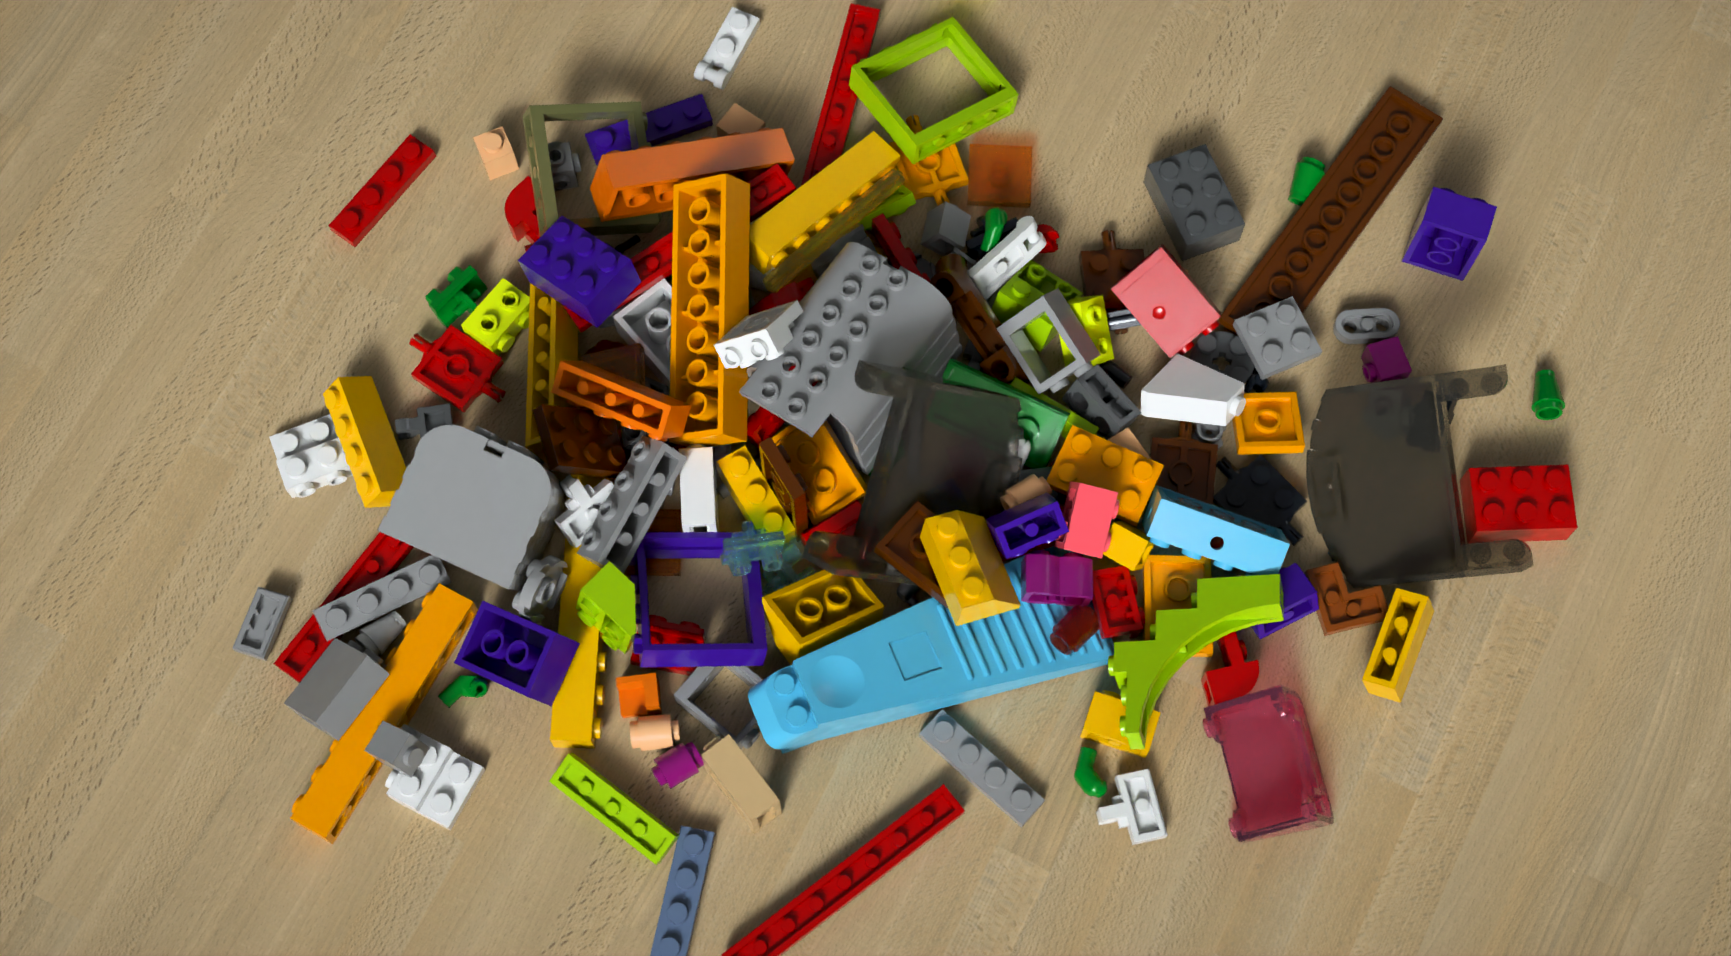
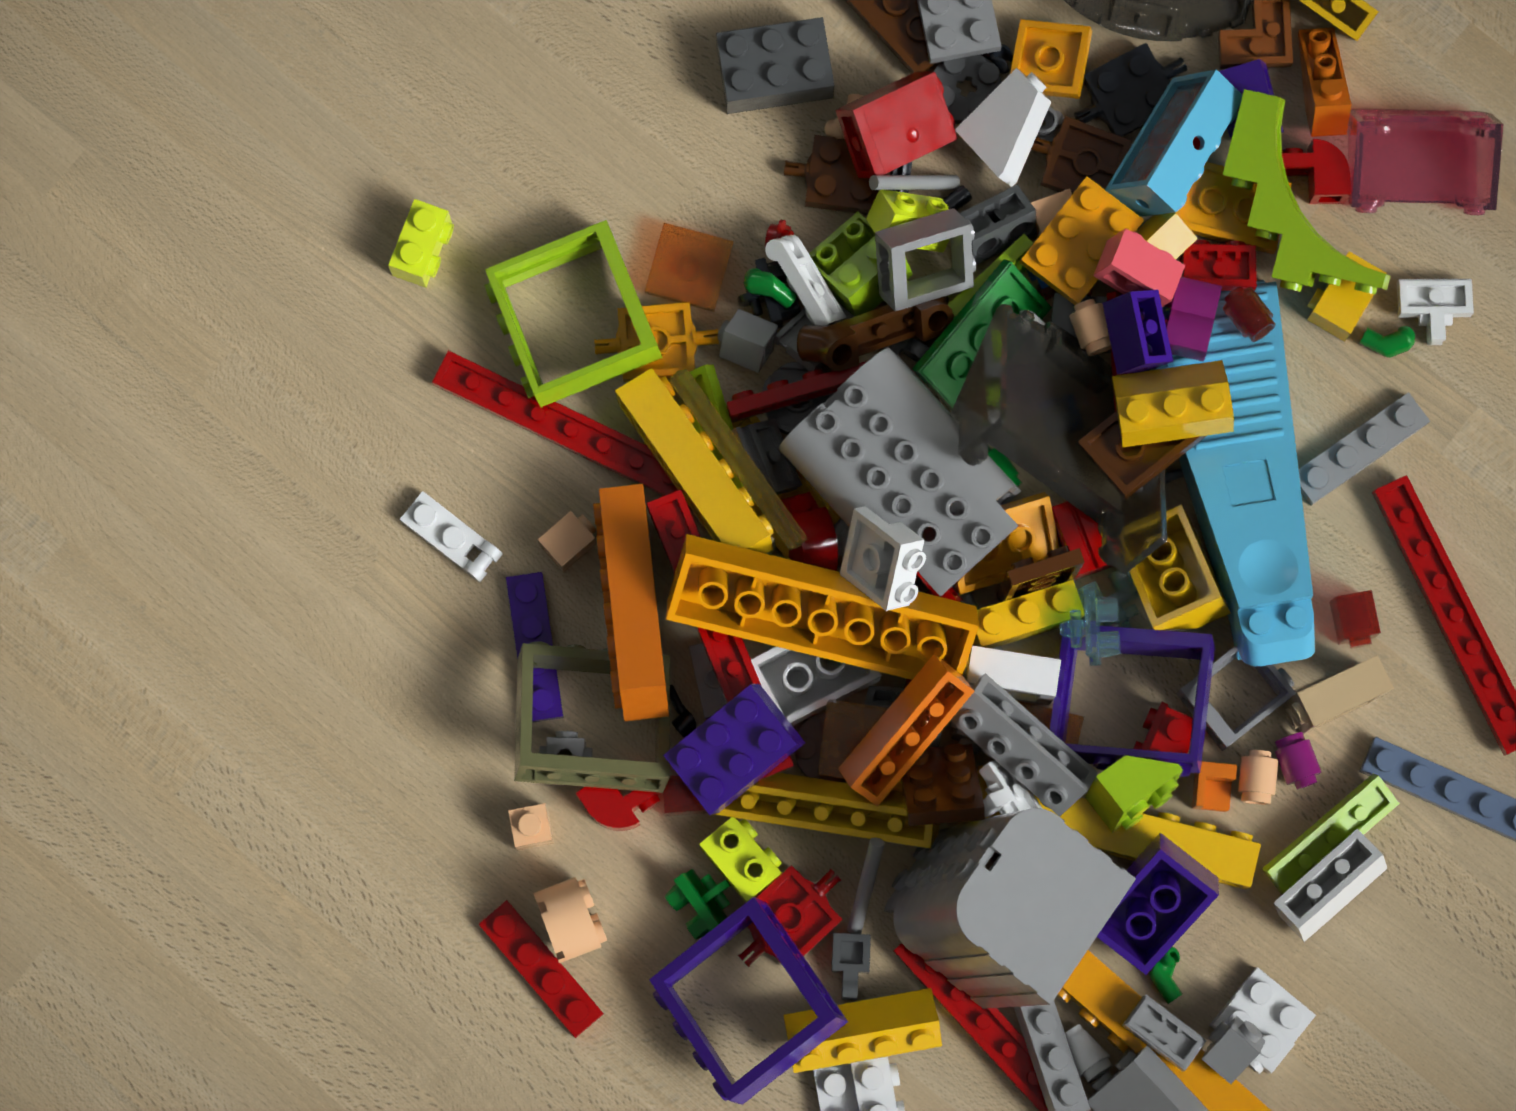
camera: 80 degrees left, 10 degrees up
(398, 368) = (829, 1015): none -> dark purple window
(402, 684) = (1164, 1032): none -> light grey plate
(421, 193) = (568, 920): none -> light nougat brick
(492, 413) = (865, 886): none -> light grey bar
(566, 812) = (1330, 885): none -> white brick
(819, 791) = (1355, 619): none -> clear red brick
(1119, 328) = (914, 182): none -> light grey bar
(1317, 664) = (1324, 83): none -> orange slope

